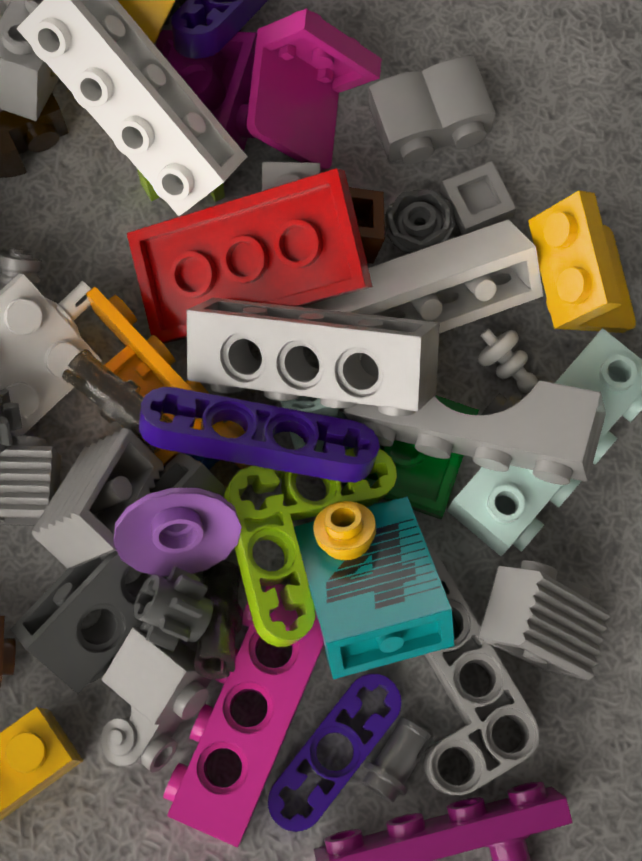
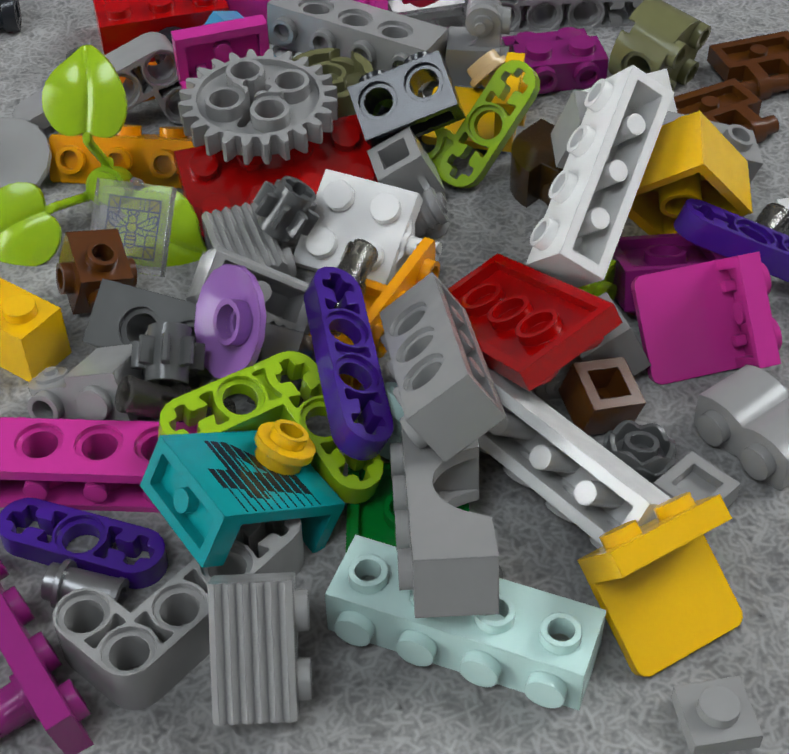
camera: 75 degrees right, 30 degrees down
(510, 363) = (543, 555): white hair -> none

